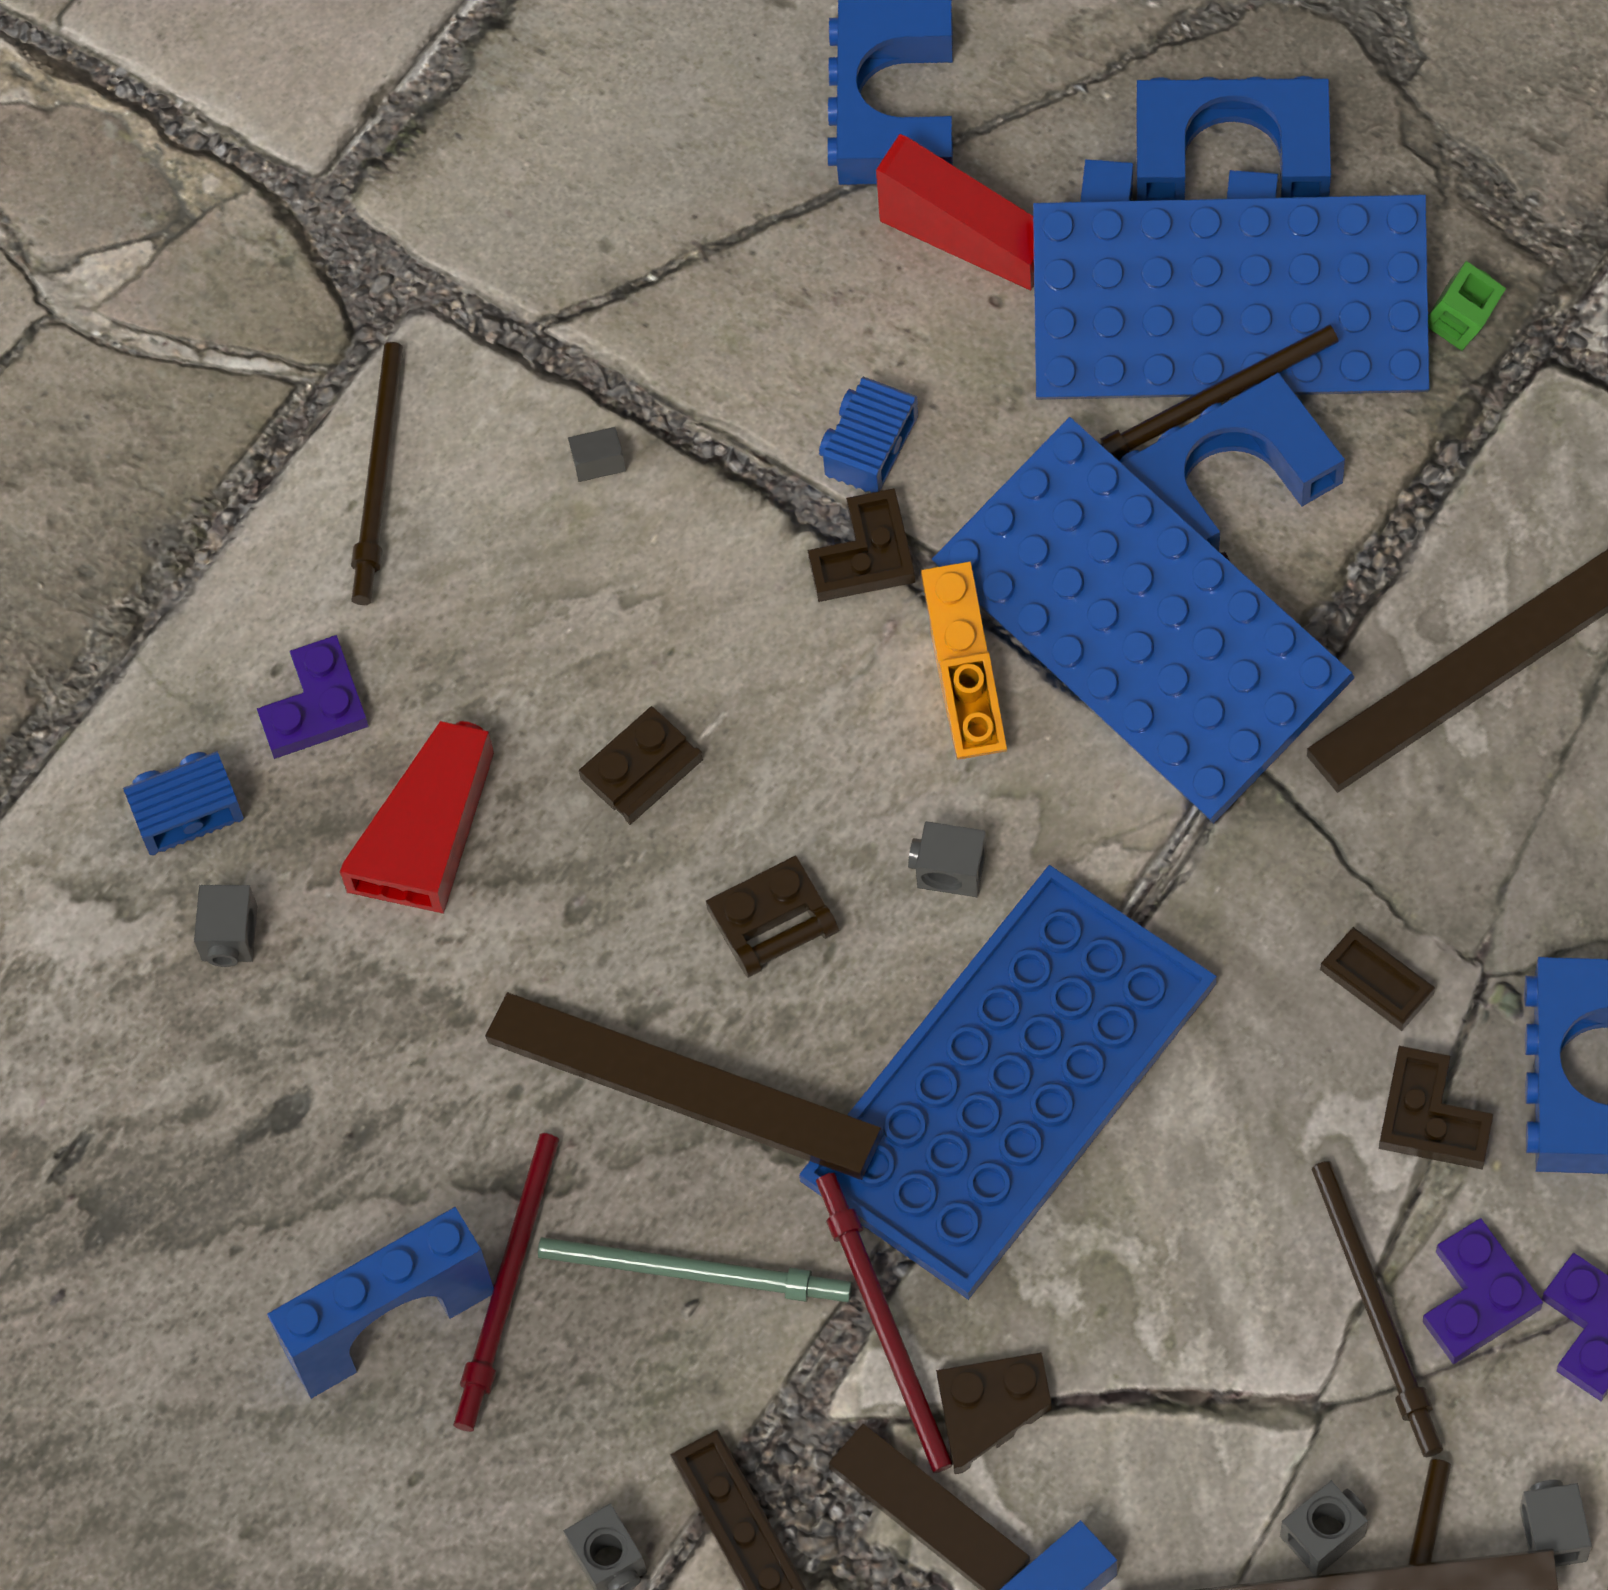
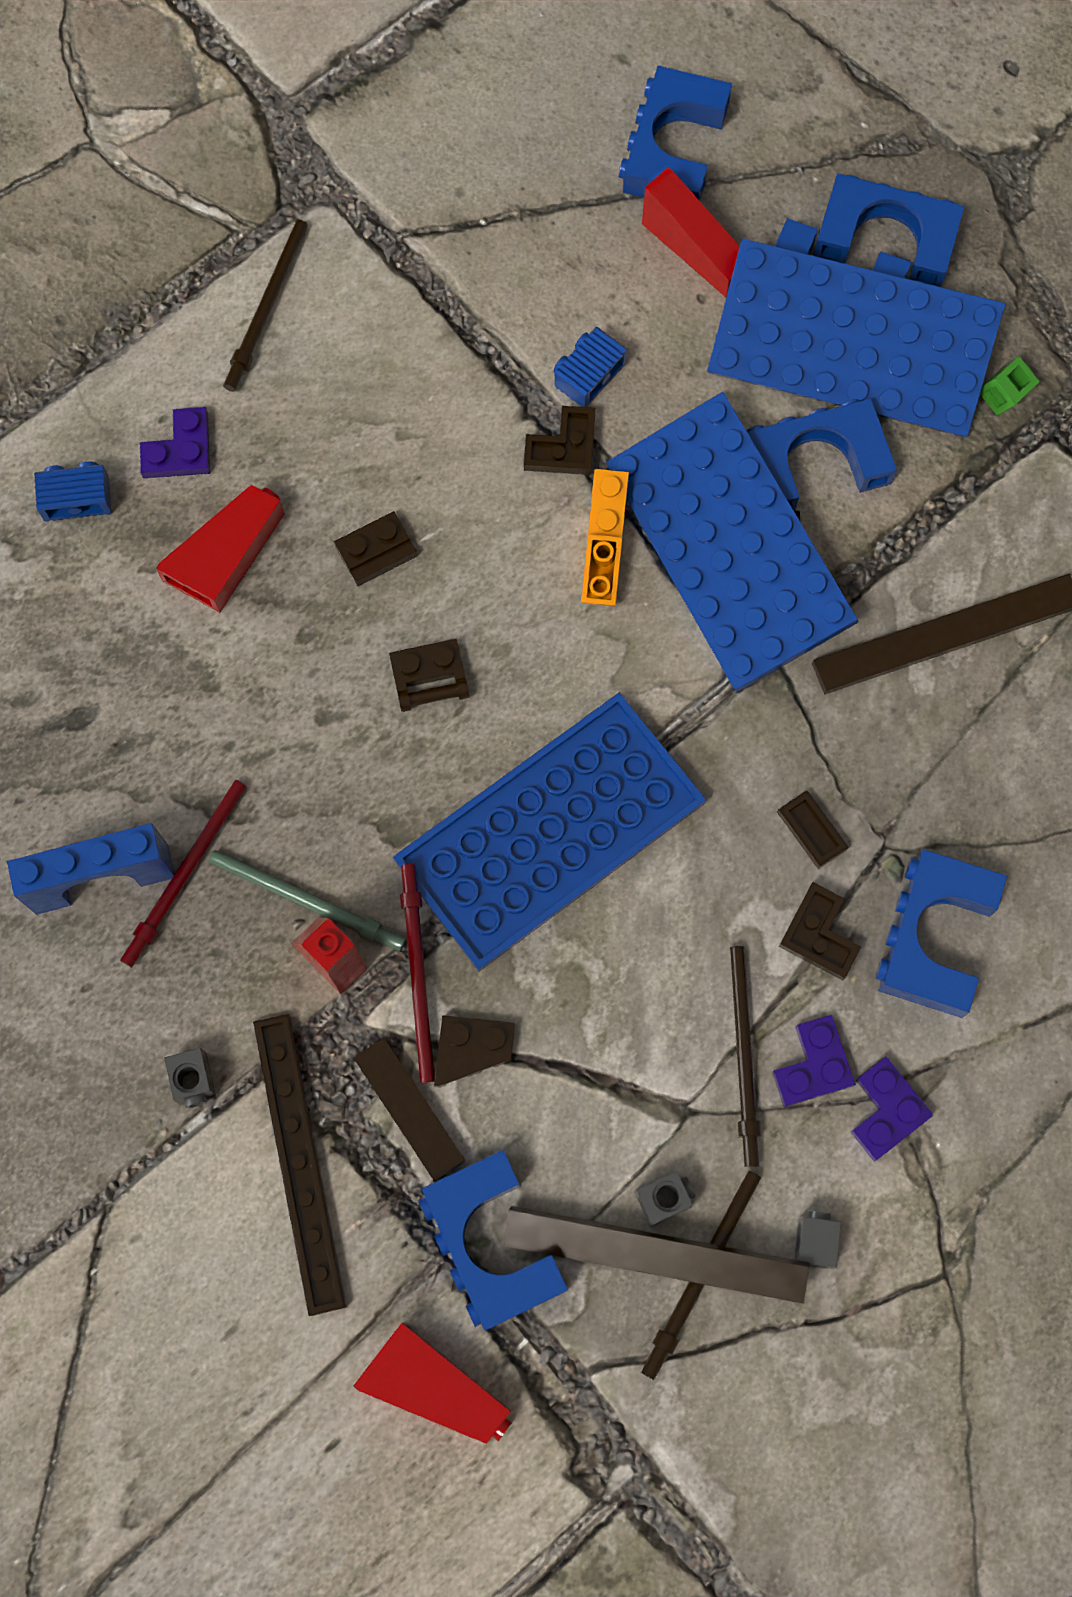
camera: 10 degrees right, 10 degrees up
(225, 924) = (75, 581): dark grey brick -> none
(597, 454) = (410, 331): dark grey slope -> none
(685, 1086) = (337, 776): dark brown tile -> none
(756, 1319) = (330, 953): none -> red slope
(949, 859) = (555, 669): dark grey brick -> none
(1121, 443) = (751, 418): dark brown bar -> none

